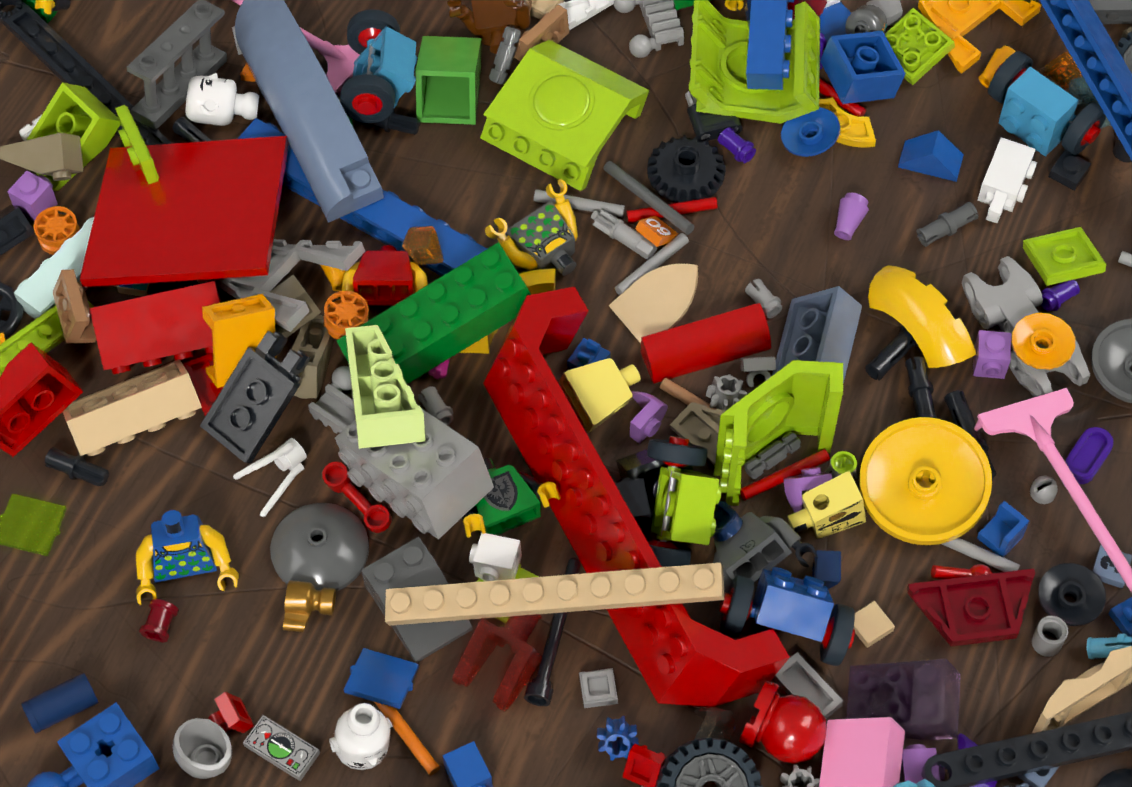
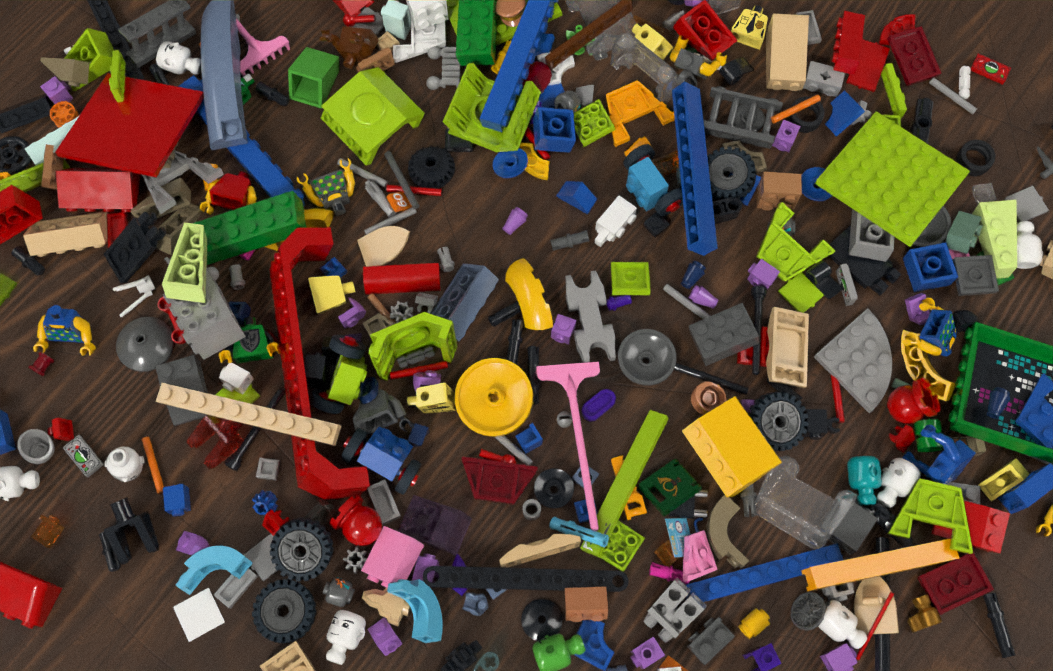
camera: 15 degrees right, 10 degrees up
(234, 329) = (130, 204): light orange panel -> none
(301, 600) = (123, 372): pearl gold piece -> none
(344, 313) = (200, 209): orange wheel -> none
(381, 70) = (271, 63): brick -> none
(381, 678) = (150, 431): blue piece -> none
(423, 245) = (257, 178): clear orange slope -> none
(505, 55) = (349, 69): dark grey axle -> none
(735, 144) = (467, 163): dark purple pin -> none
(841, 463) = (450, 376): lime piece -> none
(872, 624) = (434, 473): tan tile -> none
(1044, 330) = (591, 322): light orange dish -> none

